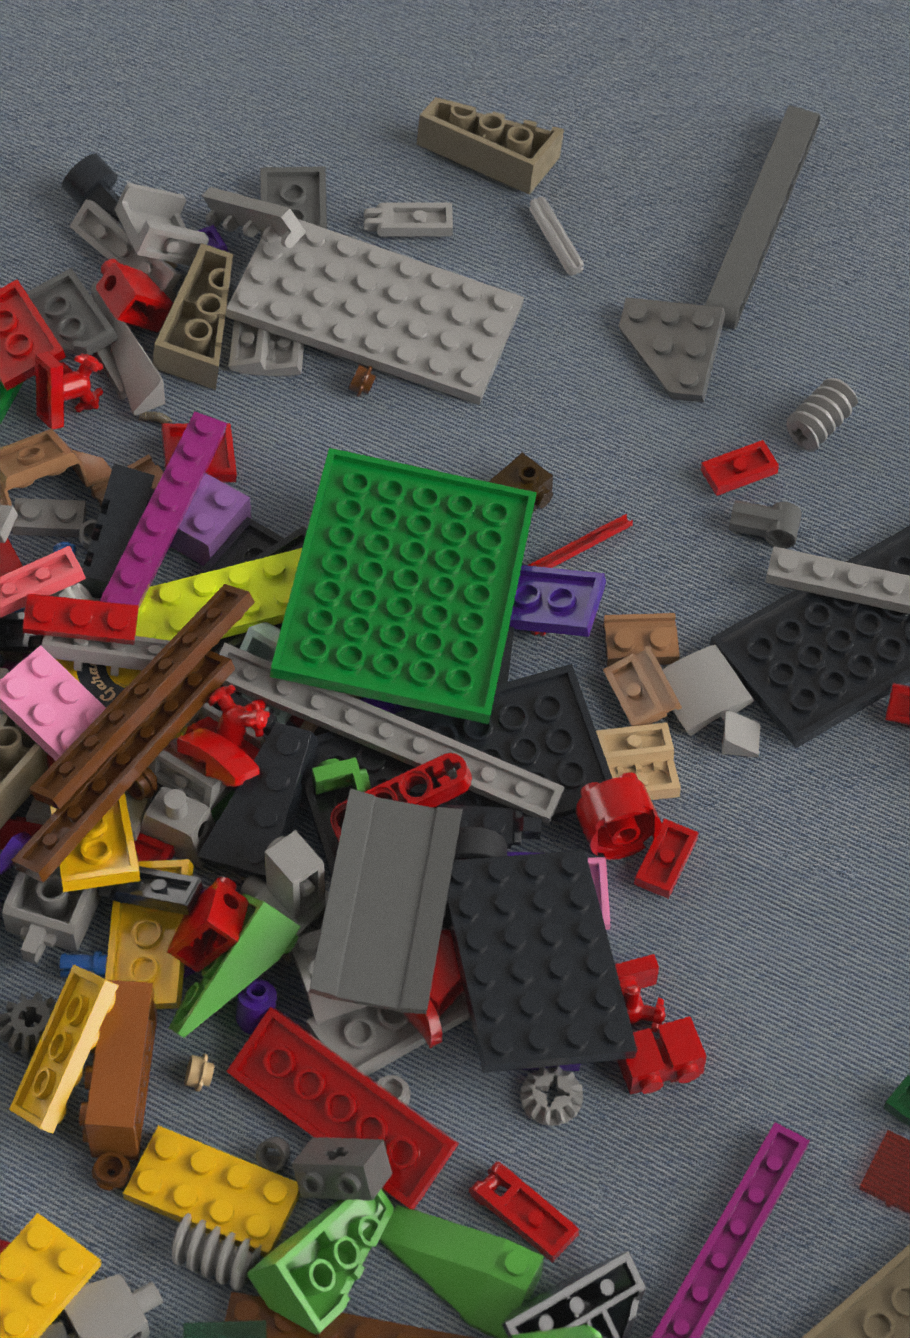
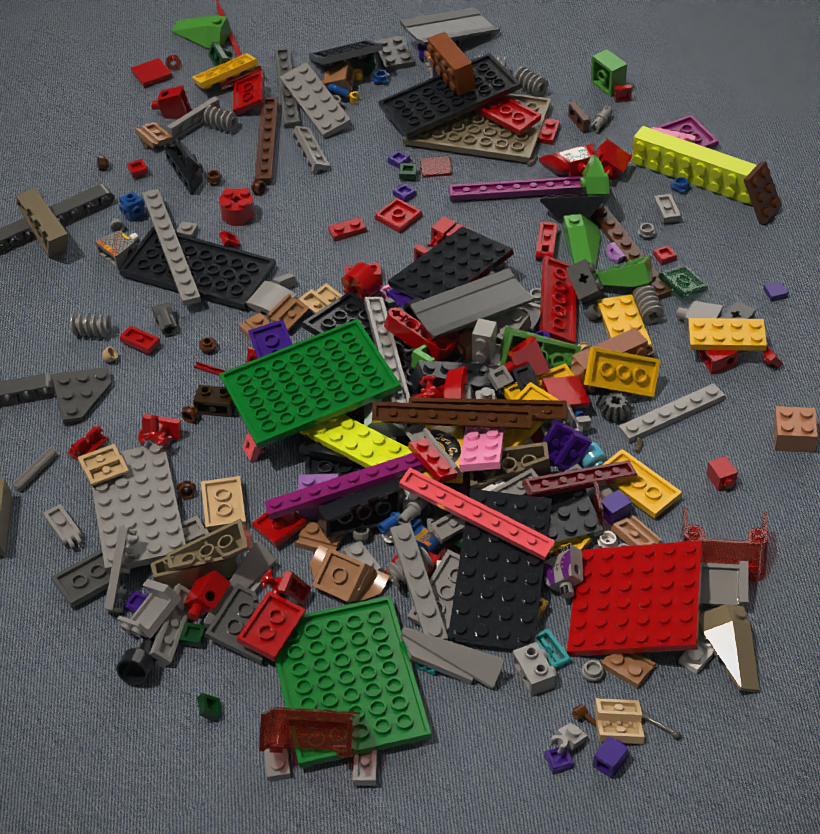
camera: 120 degrees left, 10 degrees down
(89, 267) = (192, 634): none -> dark green plate
(110, 946) = (568, 389): none -> tile
(173, 316) = (218, 545): none -> dark tan wedge
(207, 858) = (500, 377): none -> light grey plate
(295, 408) = (222, 502): none -> tan plate
(405, 1313) = (614, 253): none -> medium lavender piece
(476, 292) = (102, 464): none -> tan slope
(504, 396) = (159, 430): none -> red piece
(513, 450) = (190, 414): none -> reddish brown plate
(553, 309) = (90, 443): none -> red hinge
(657, 559) = (207, 345): none -> reddish brown plate
(727, 413) = (109, 354): none -> tan hinge
(794, 1015) = (398, 215): none -> red tile
(814, 908) = (347, 229): none -> red plate
(855, 1065) = (404, 192): none -> dark purple tile

